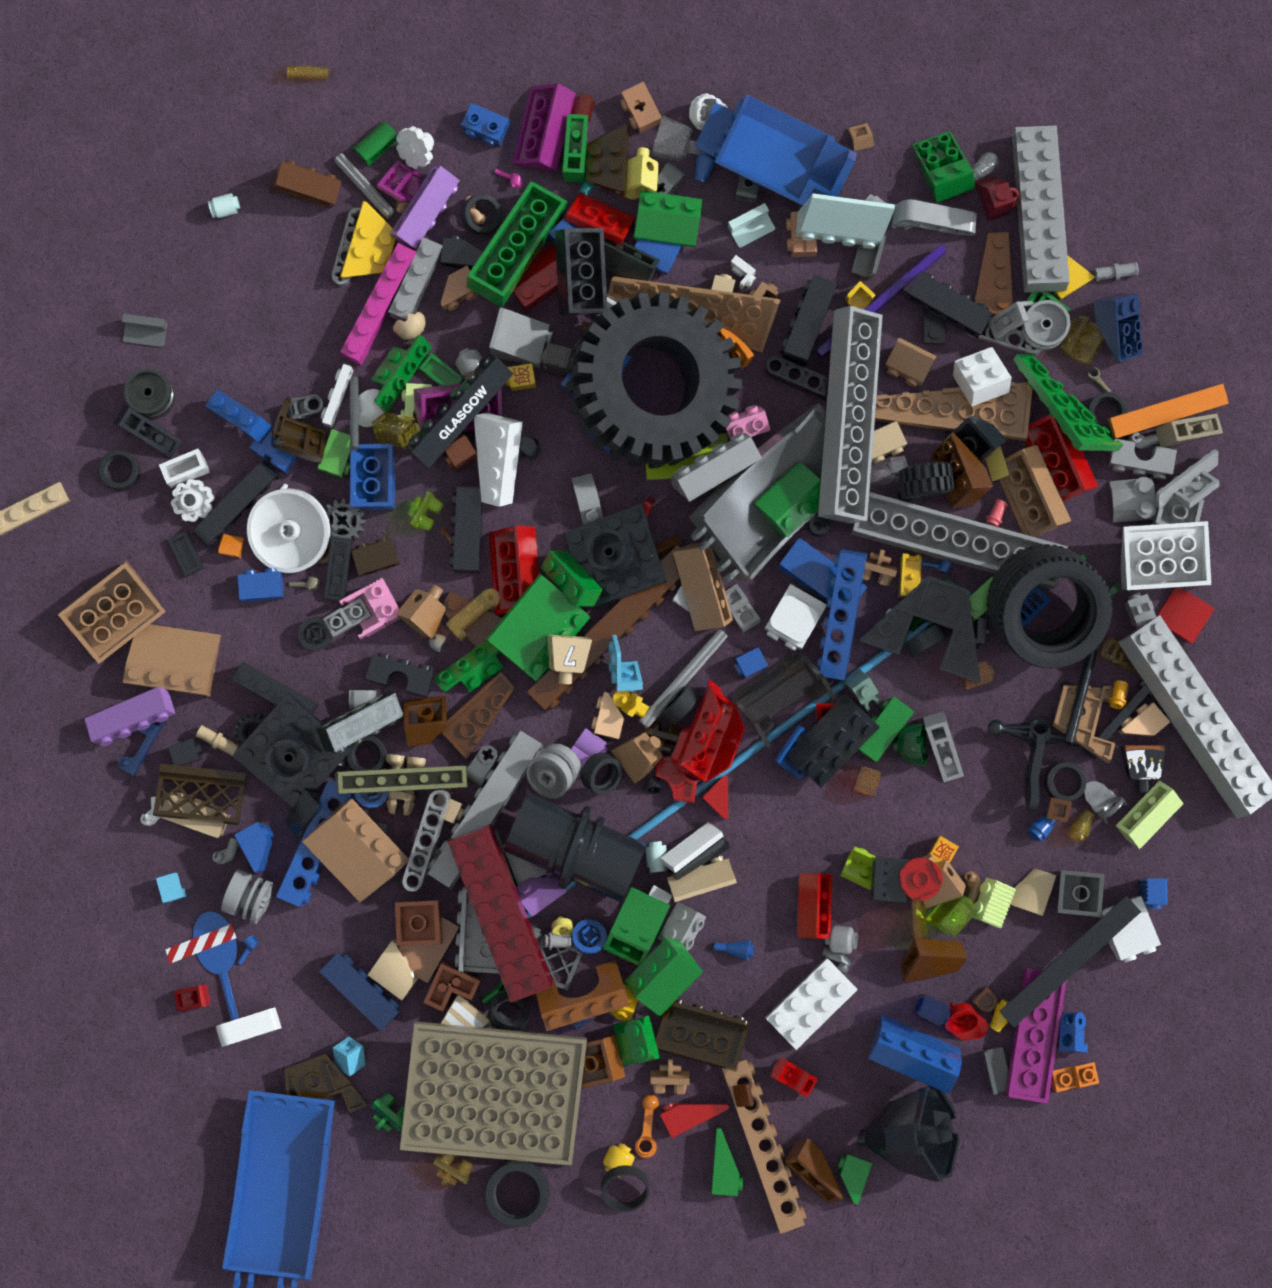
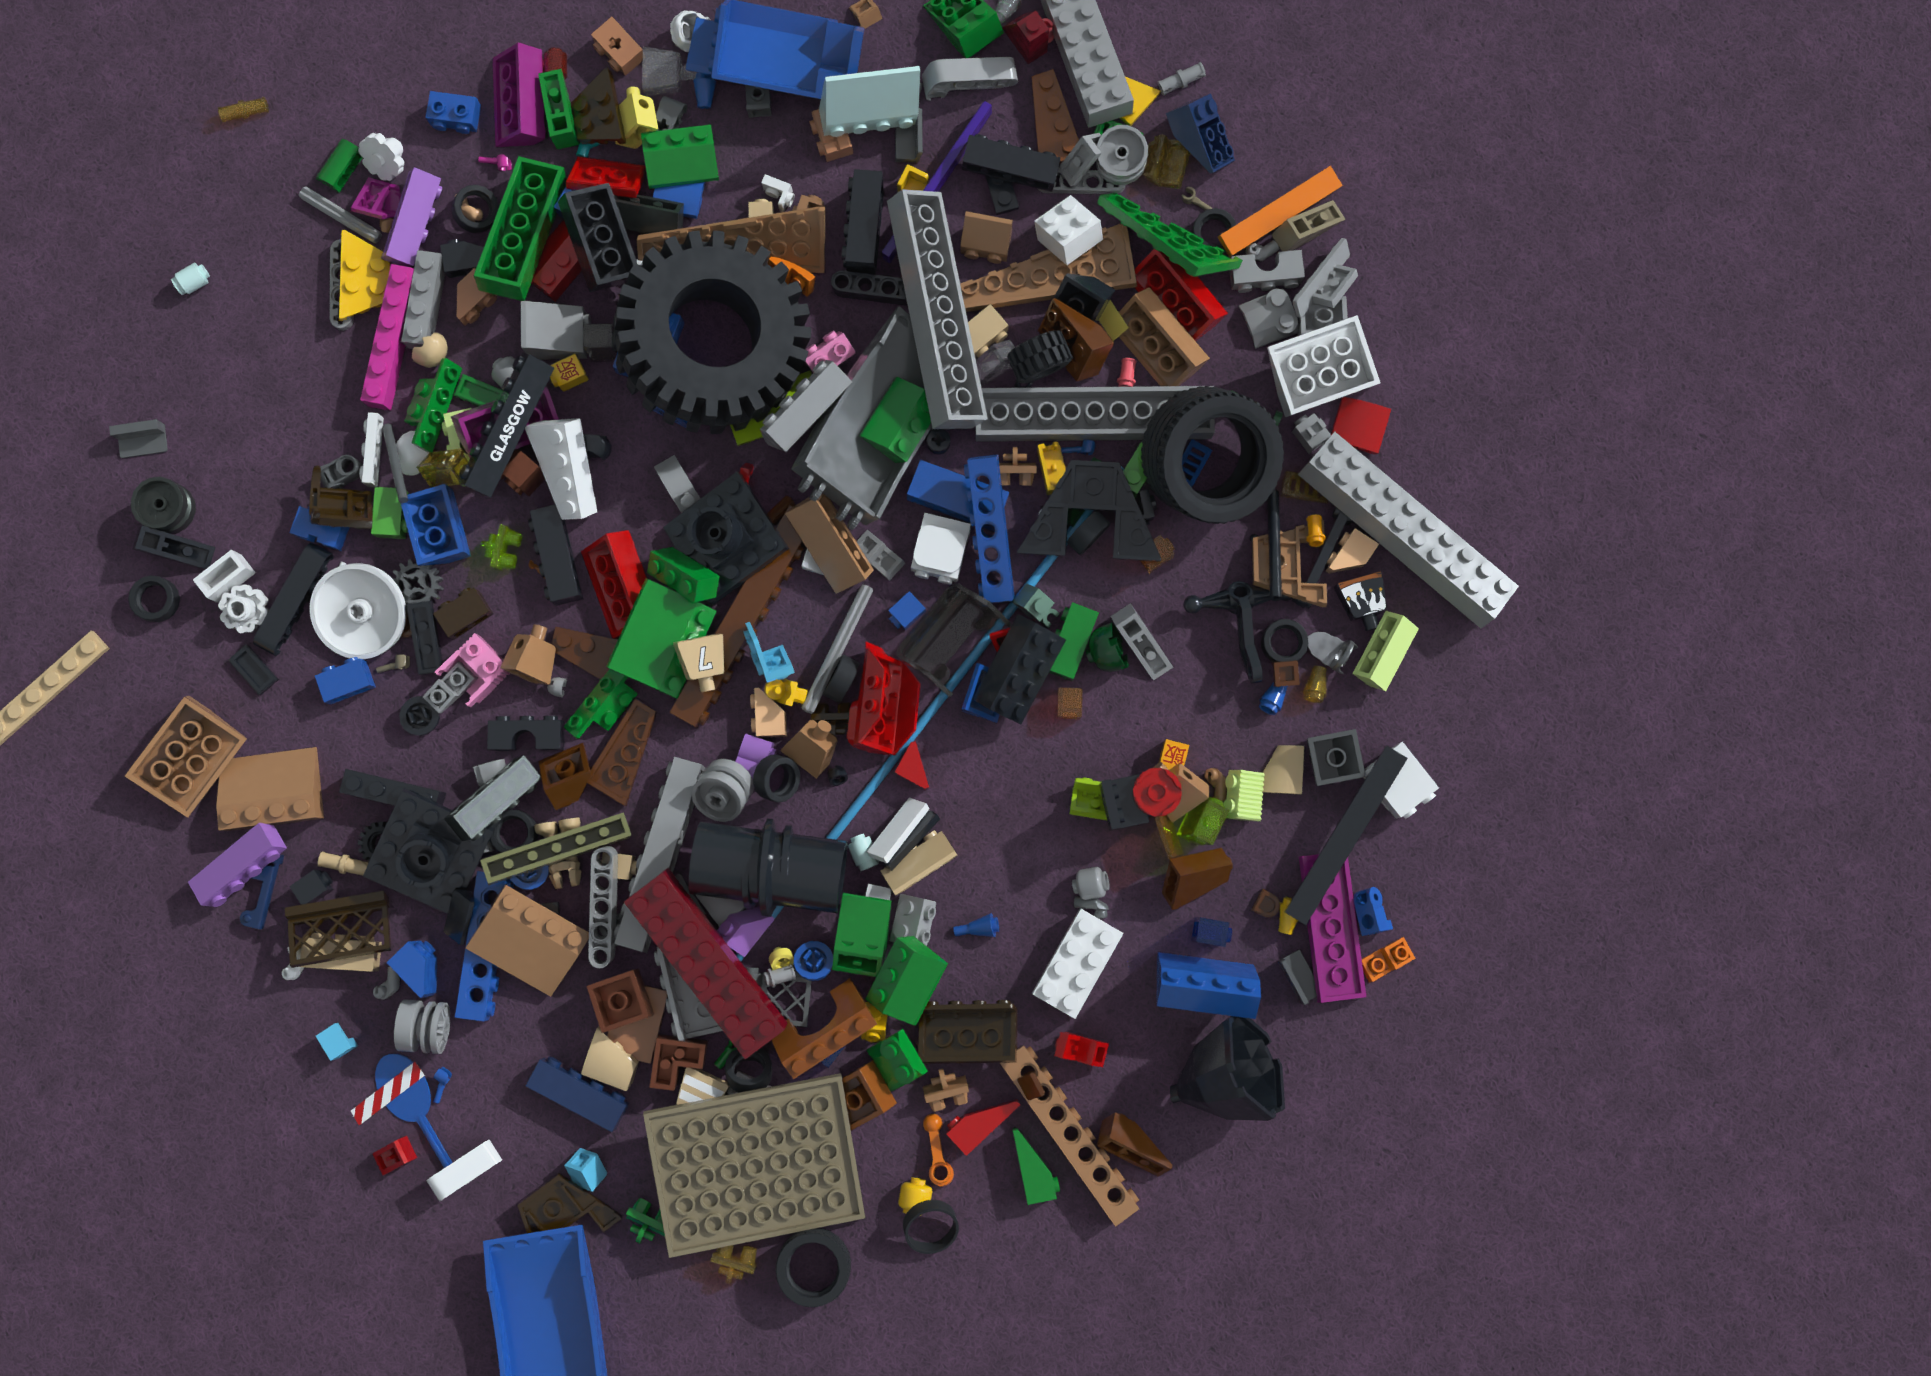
camera: 15 degrees left, 0 degrees up
(231, 546) = (301, 647): orange slope -> none
(238, 415) = (267, 501): blue arch -> none
(305, 184) = (272, 229): reddish brown wedge -> none
(480, 768) = (641, 810): dark grey piece -> none
(486, 600) = (585, 641): clear yellow leg -> none
(683, 788) = (871, 768): red tile -> none
(751, 225) = (773, 139): light aqua panel -> none
(814, 905) = (1050, 855): red brick -> none
(854, 1174) = (1177, 1135): green slope -> none
(965, 1022) = (1251, 934): red piece -> none
(1153, 892) = (1414, 733): blue brick -> none

